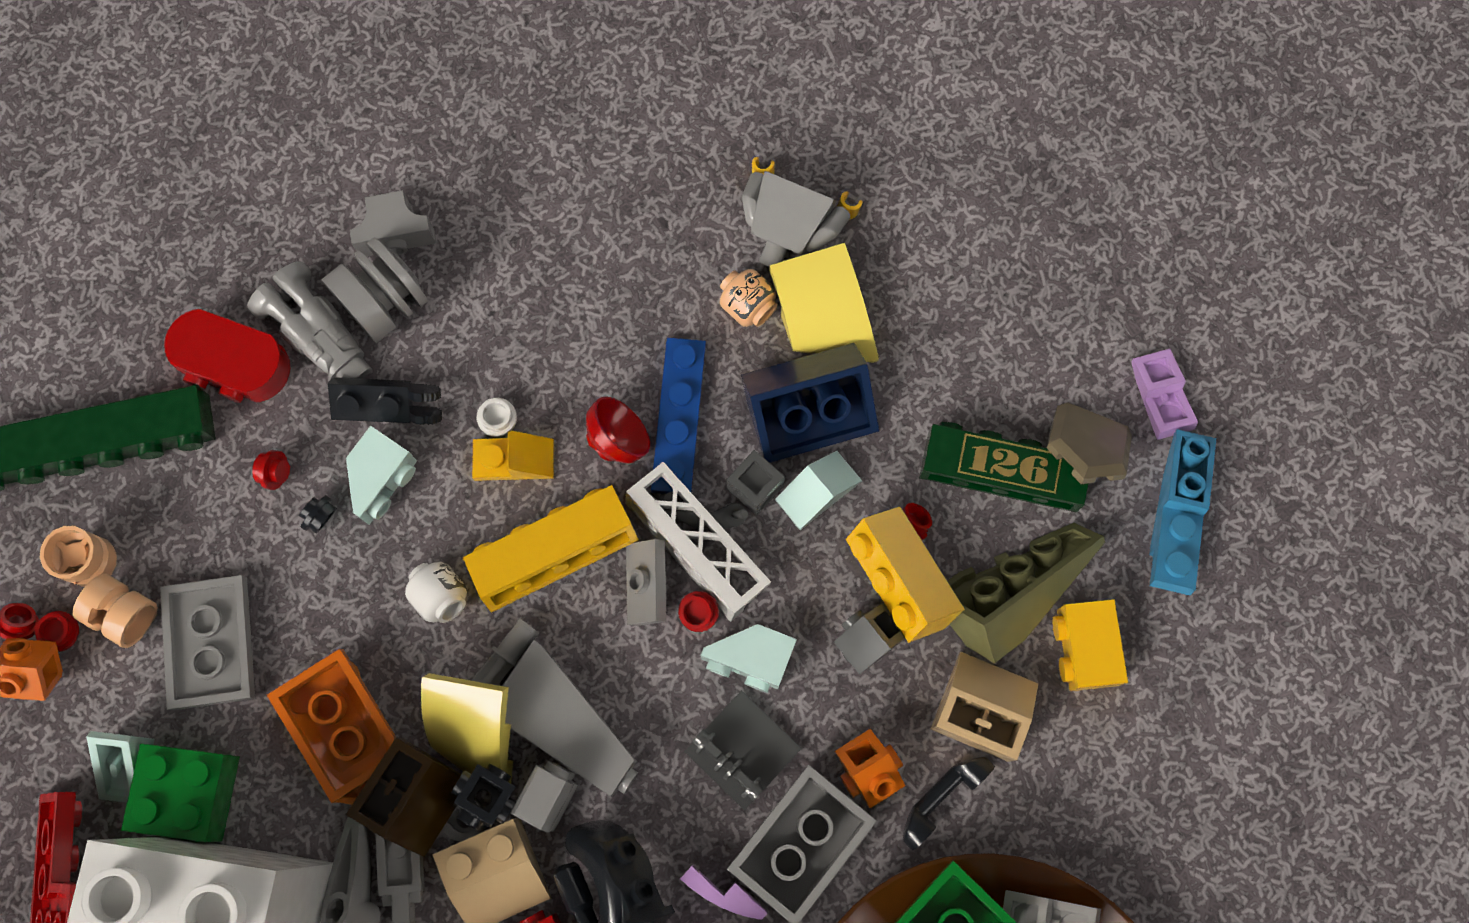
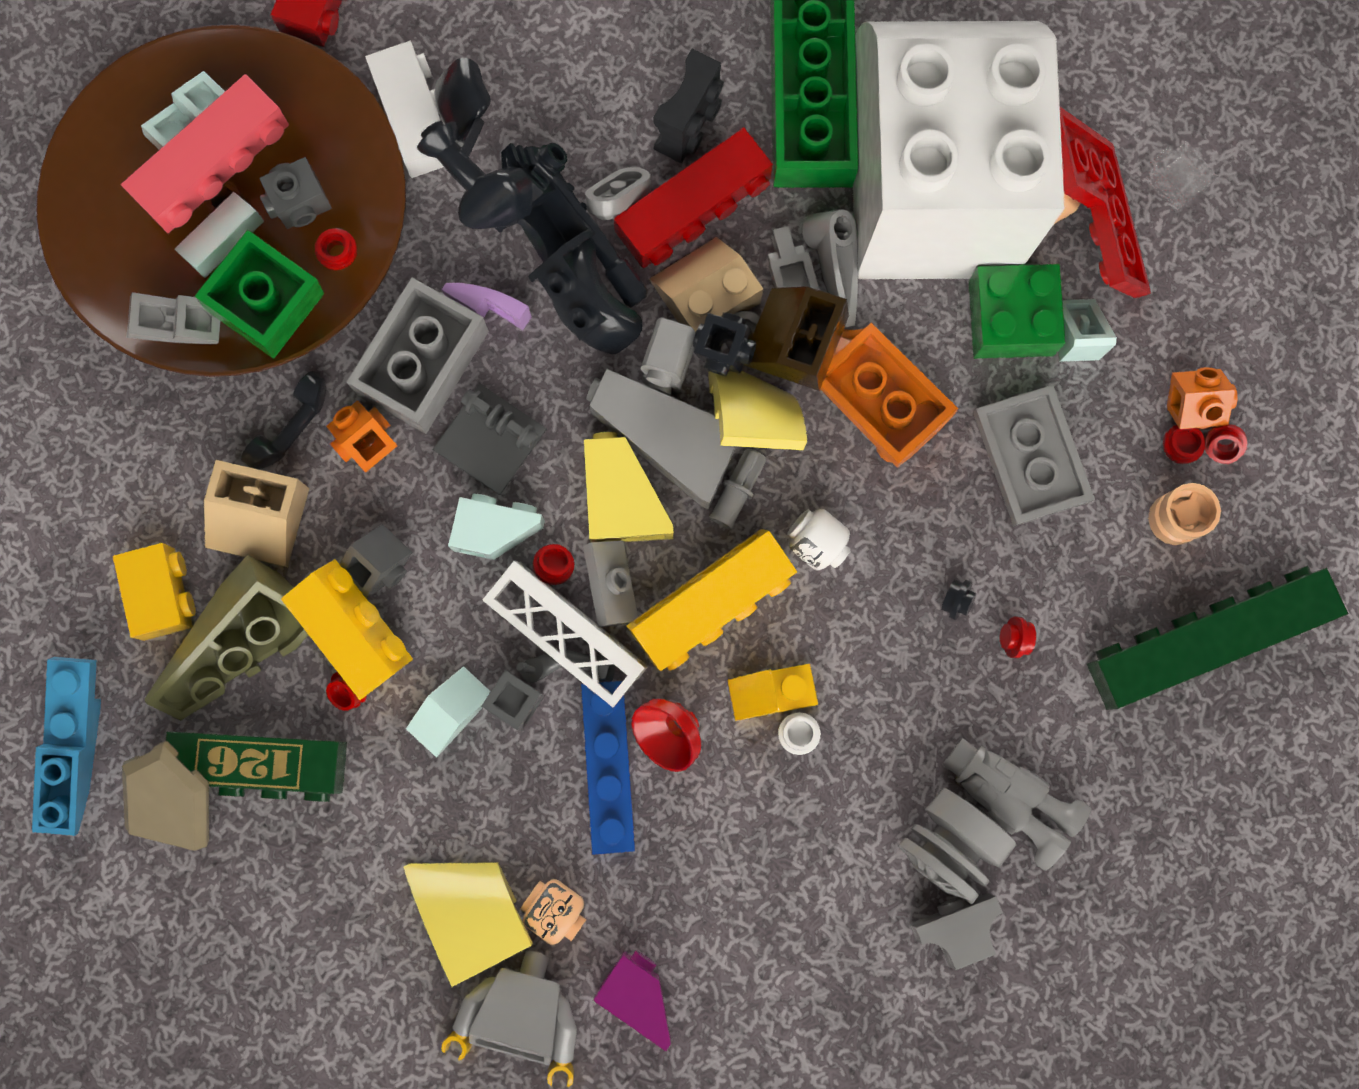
camera: 165 degrees right, 5 degrees up
(110, 607) = (1136, 470): light nougat wheel -> none
(226, 356) = (1098, 749): red brick -> none
(375, 472) = (911, 650): light aqua slope -> none
(382, 401) = (919, 729): black hinge -> none
(621, 668) = (620, 495): none -> light yellow slope
(687, 216) = (636, 997): none -> magenta slope
(811, 402) = (468, 803): dark blue slope -> none
(1163, 394) = (93, 878): lavender slope -> none

